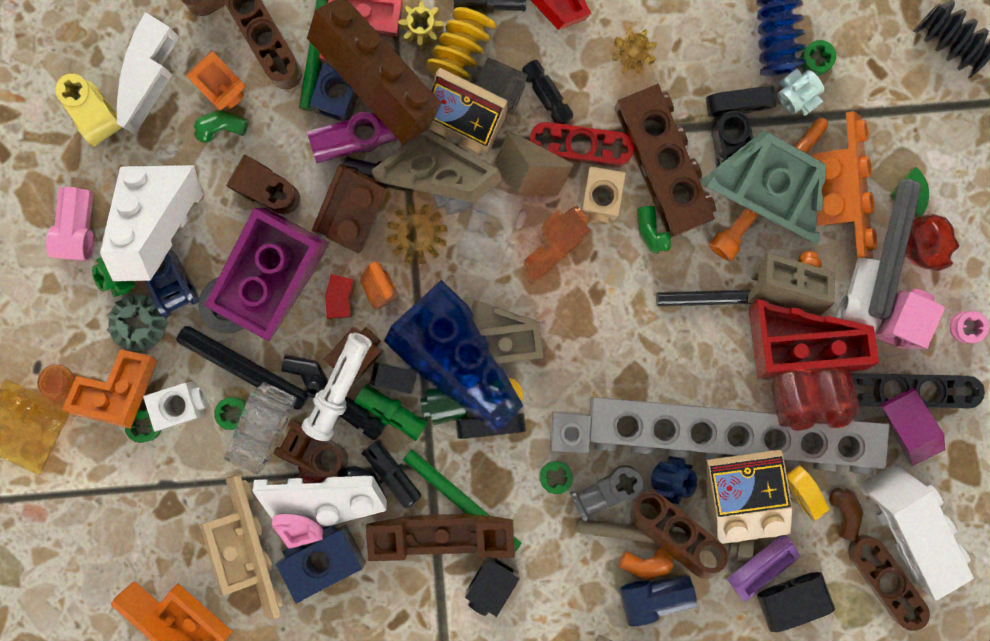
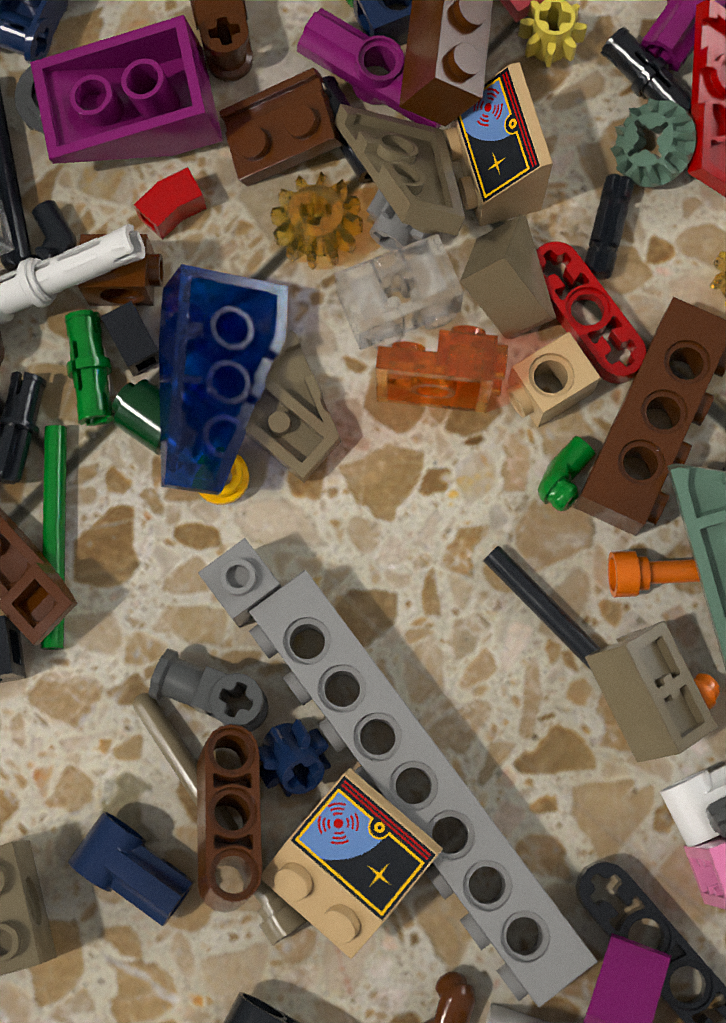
camera: 50 degrees right, 10 degrees down
(360, 418) = (52, 339): black axle -> none
(378, 286) = (223, 227): orange slope -> none
(460, 42) = (577, 82): yellow piece -> none
(476, 428) = (186, 505): black beam -> none
(501, 81) = (576, 167): clear smoke brick -> none
(540, 23) = (675, 144): none -> sand green gear
(557, 489) = (164, 633): green bush -> none
(649, 568) = (158, 825): orange arm -> none
(764, 567) = (282, 968): medium lavender tile -> none
(805, 341) = (604, 775): red wedge -> none
(807, 493) = (420, 935): yellow beam -> none
(815, 397) = (544, 833): clear red brick -> none

